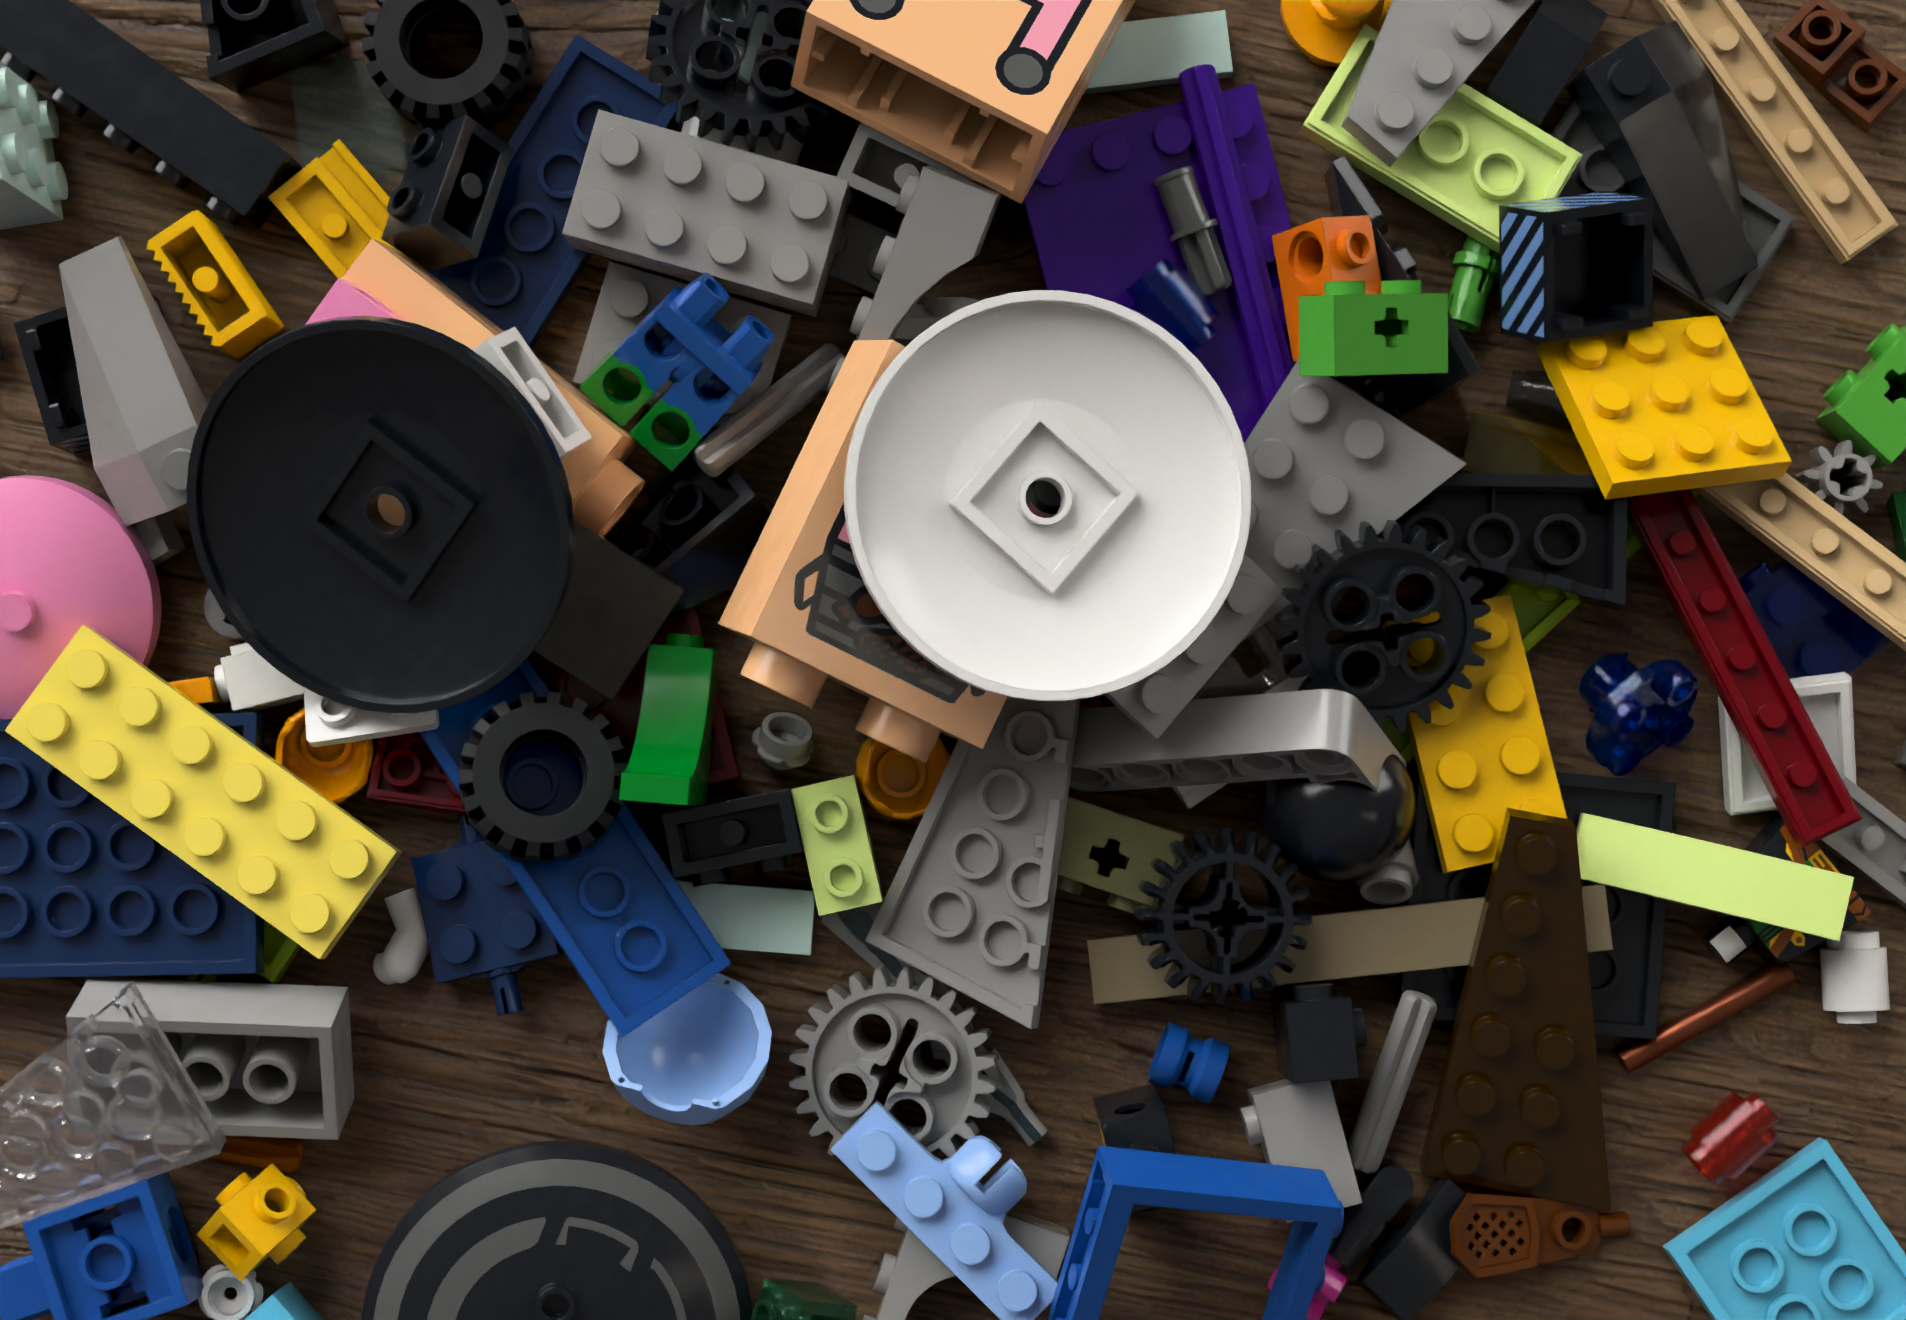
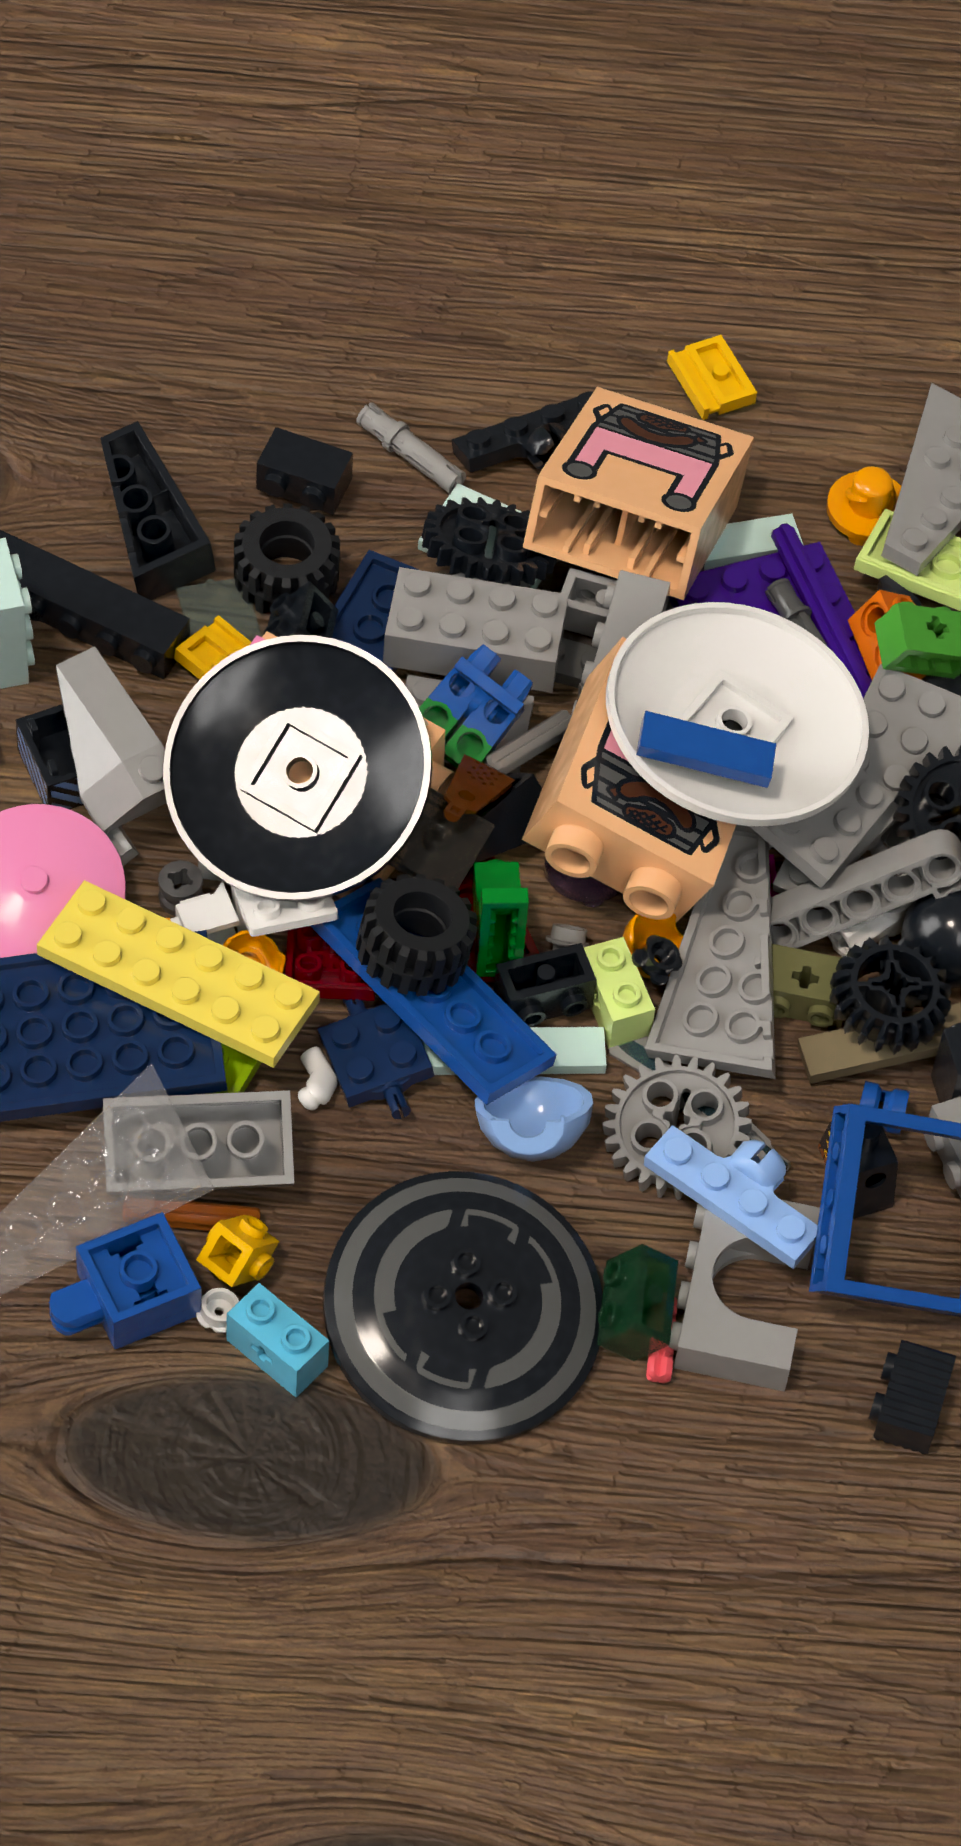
camera: 10 degrees left, 30 degrees down
(214, 285) = (148, 689): yellow brick -> none
(653, 534) = (474, 788): none -> reddish brown piece
(914, 823) = (665, 952): none -> black plate
(984, 580) = (706, 749): none -> blue tile

